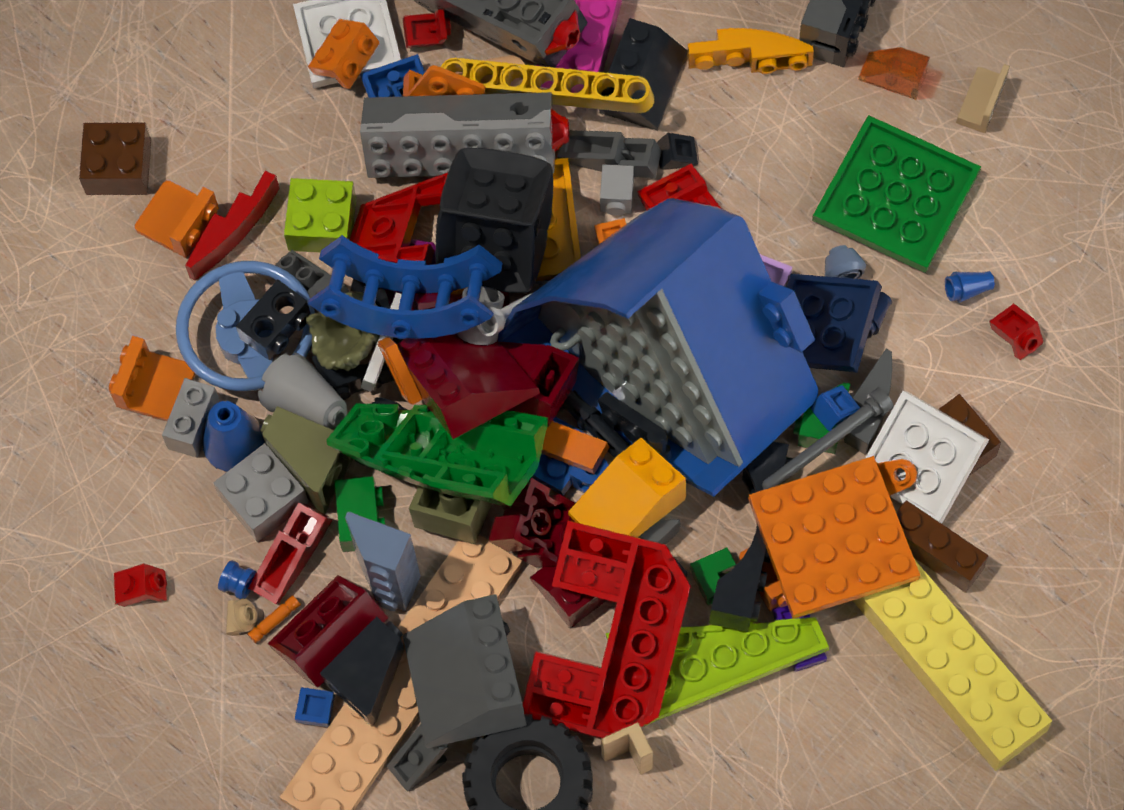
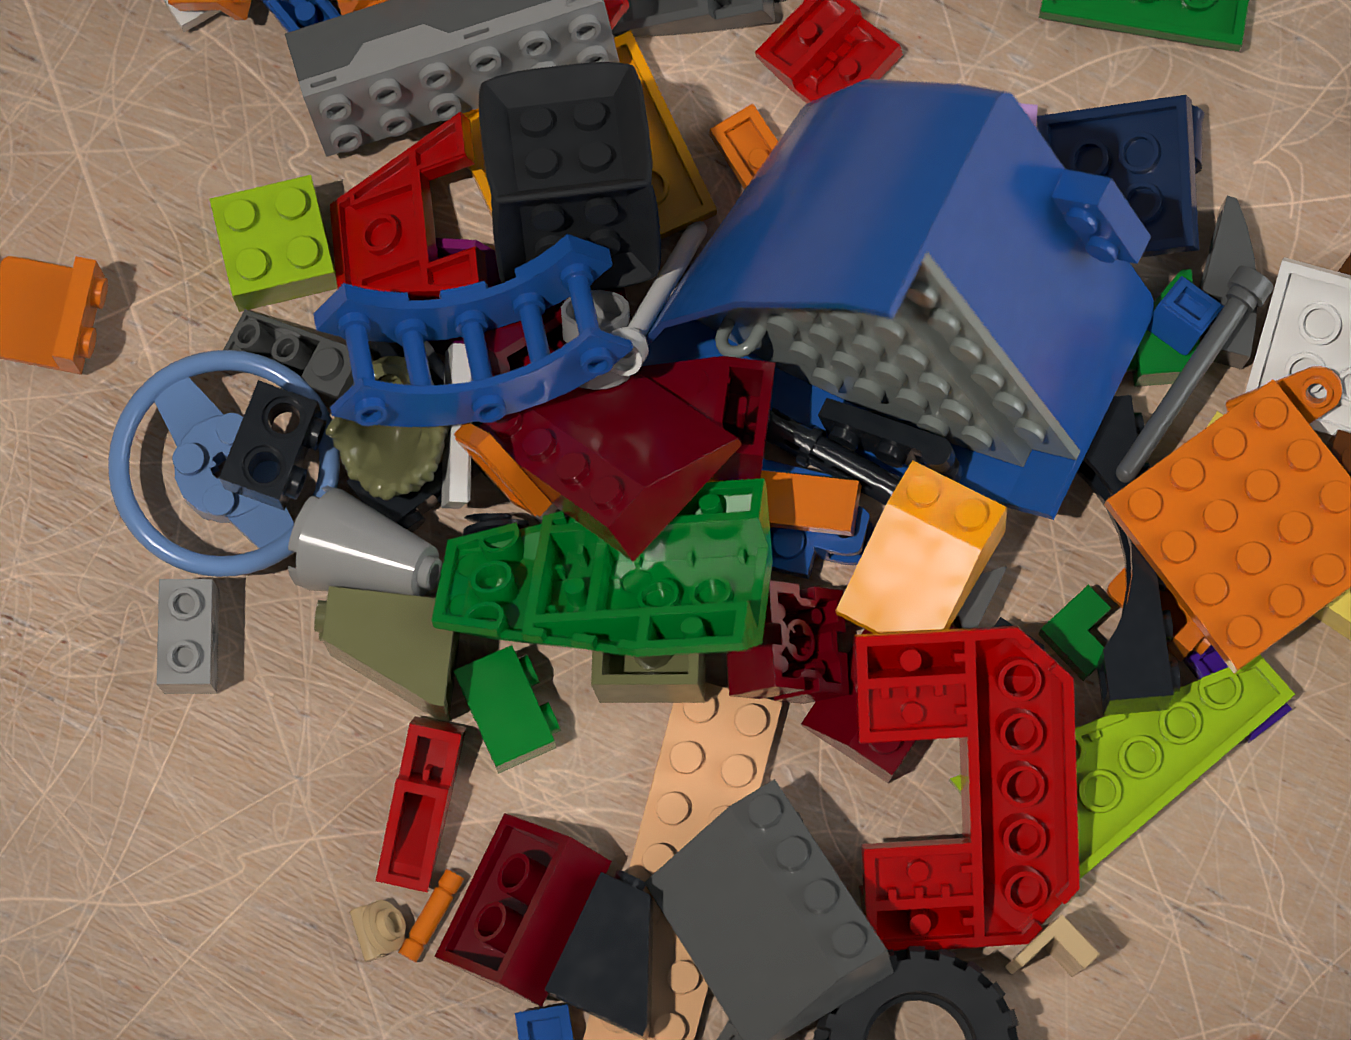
camera: 25 degrees left, 10 degrees up
(140, 584) = (203, 929): red bracket -> none
(148, 380) = (101, 597): orange bracket -> none
(227, 232) = (132, 316): red slope -> none
(230, 435) = (267, 651): blue cone -> none
(236, 579) = (353, 874): blue wheel -> none
(260, 492) = (342, 722): light grey brick -> none
(386, 561) = (583, 784): sand blue slope -> none
(616, 189) = (724, 59): light grey brick -> none
(844, 263) = (1114, 77): sand blue cone -> none
(965, 285) = (1309, 53): blue cone -> none

